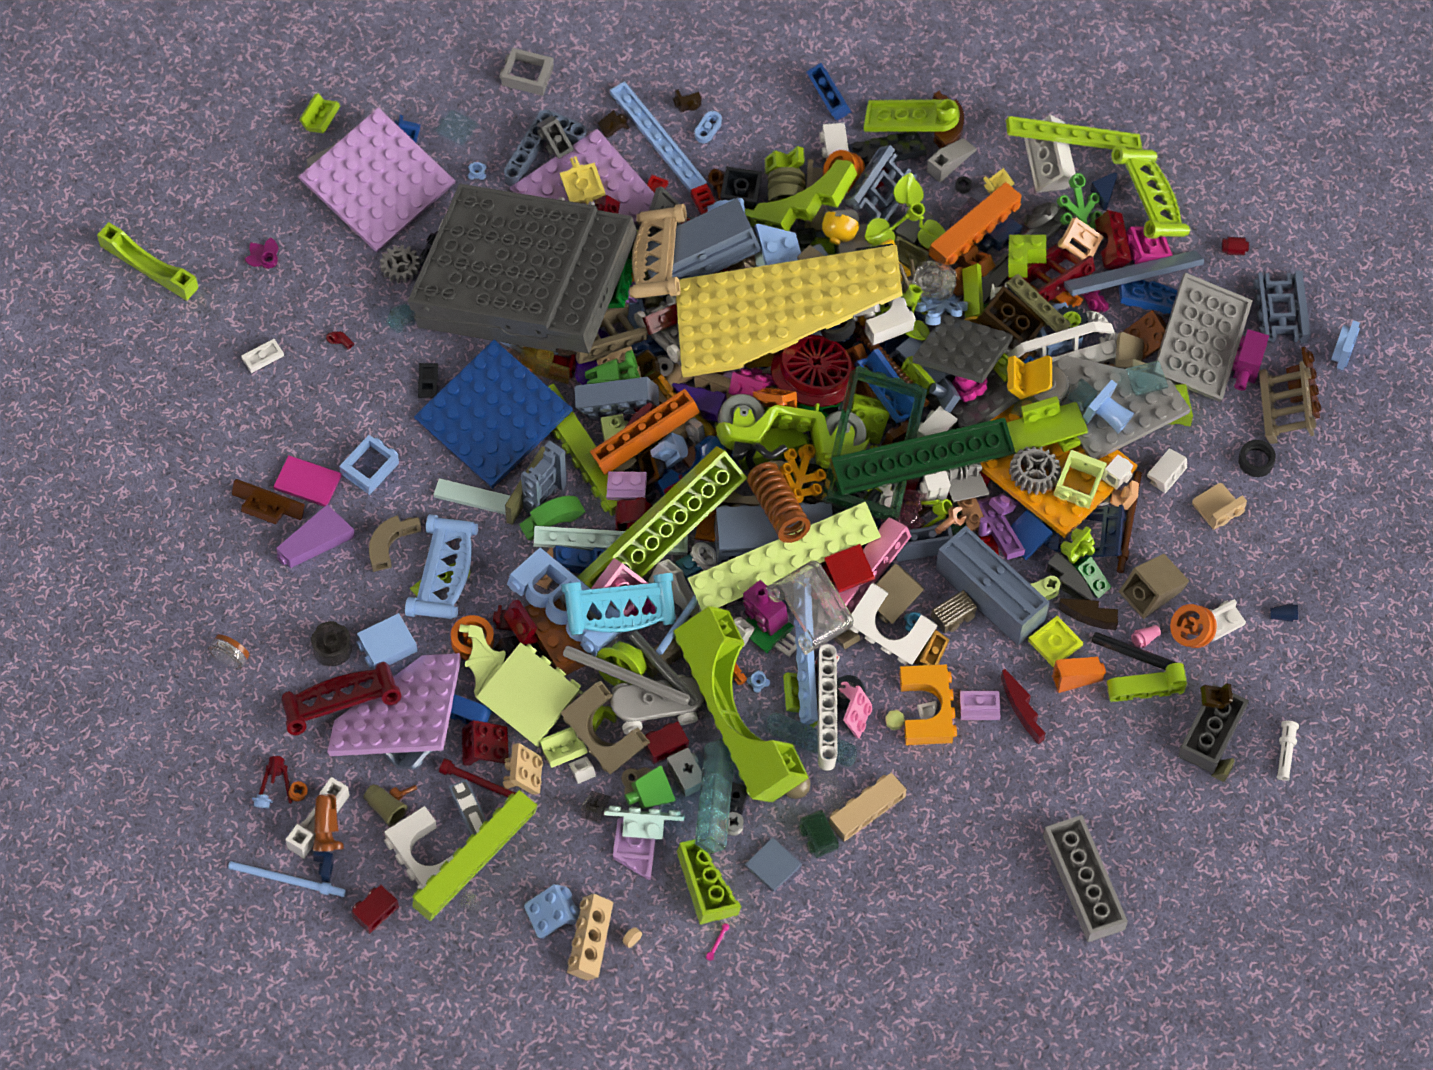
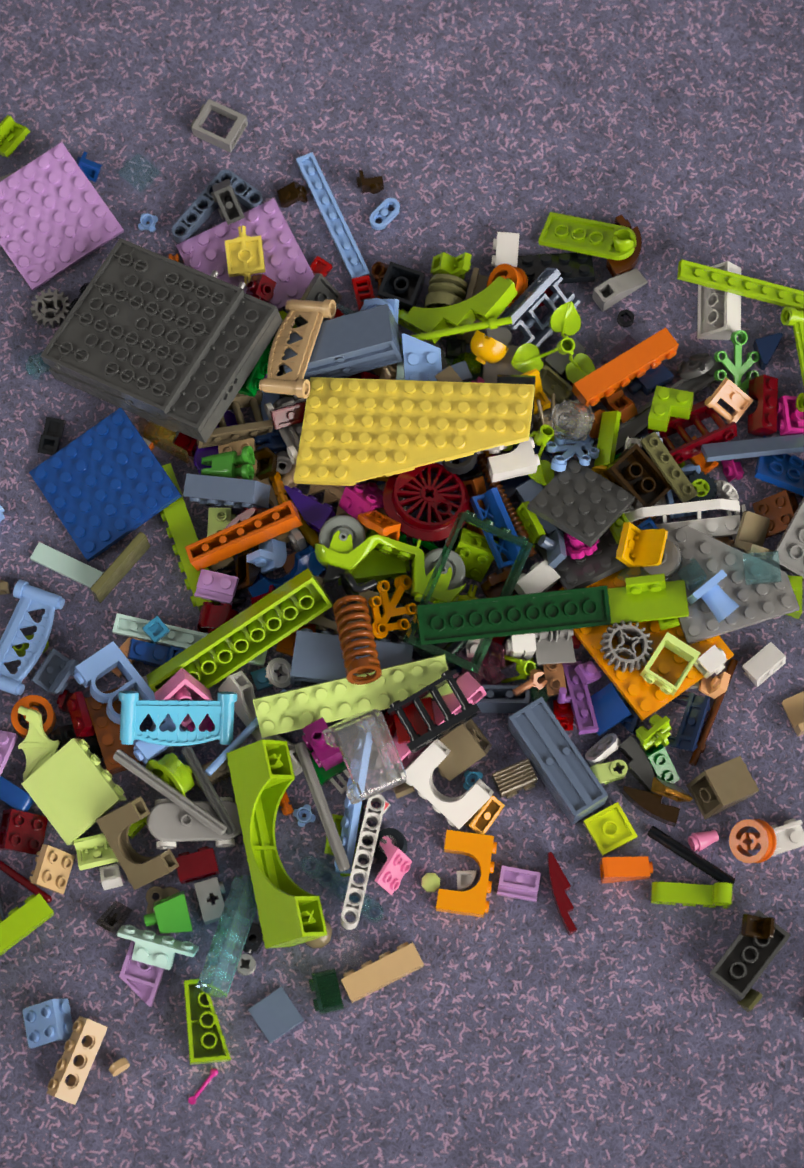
camera: 15 degrees right, 10 degrees up
(484, 592) = (54, 672): none -> sand blue bracket
(544, 478) = (133, 568): sand blue fence -> none
(551, 513) = (140, 600): bright green arch -> none
(577, 533) = (156, 629): none -> dark azure plate
(777, 664) = (322, 806): none -> light grey axle
(828, 91) = (511, 197): blue brick -> none
(840, 203) = (492, 323): none -> lime bar
(871, 571) = (433, 730): none -> black fence
(997, 180) = (660, 321): light yellow bracket -> none
(1034, 569) = (602, 749): none -> white plate
(1085, 878) = (582, 1094): light grey brick -> none
(1105, 596) = (670, 790): none -> pearl gold slope

